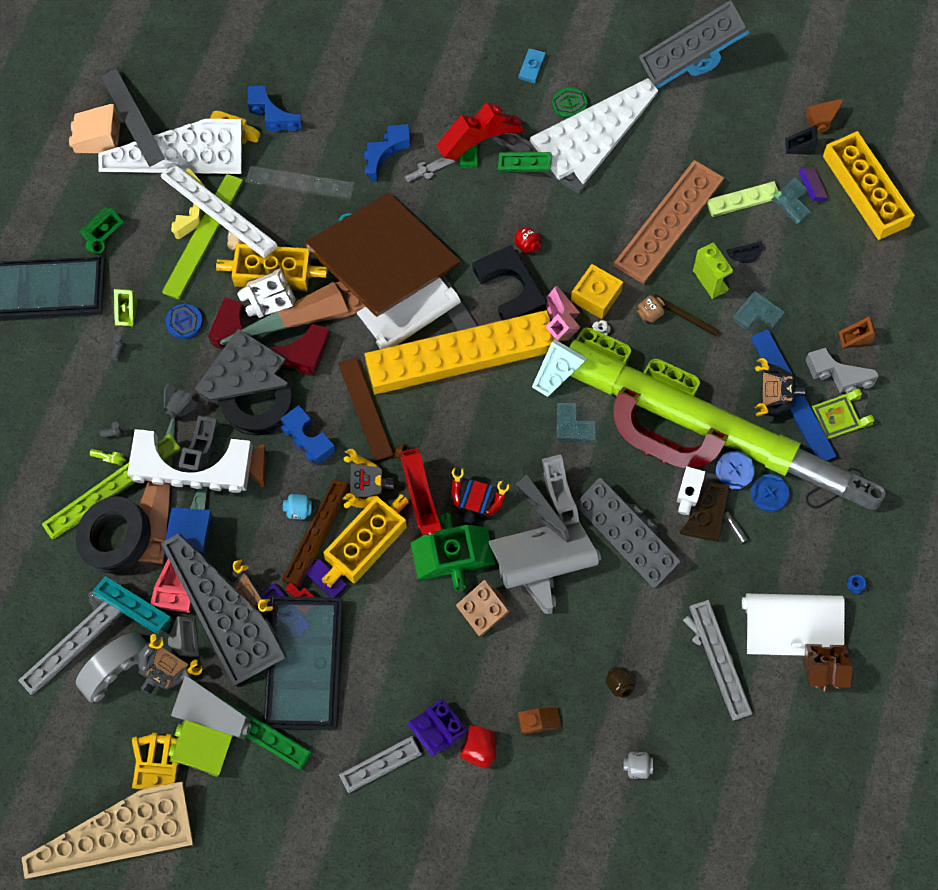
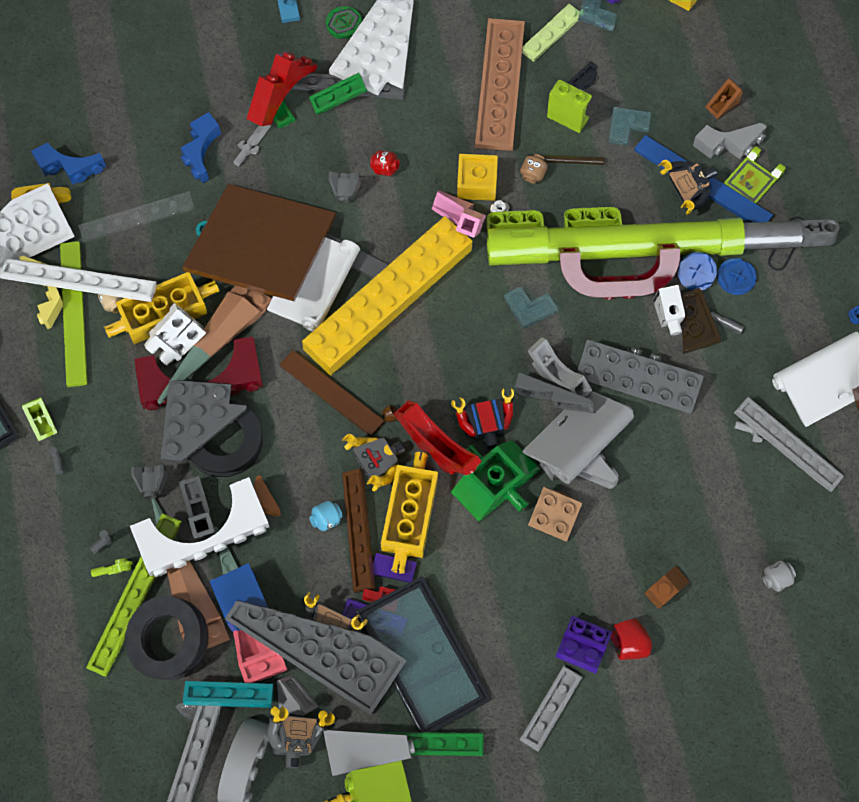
camera: 30 degrees left, 0 degrees up
(184, 321) = (105, 402): tile -> none
(317, 447) = (309, 453): blue arch -> none
(481, 242) = (344, 185): none -> dark grey brick
(508, 262) = (381, 192): black arch -> none
(556, 367) = (488, 259): light aqua wing -> none
(620, 682) = (716, 511): dark brown head -> none

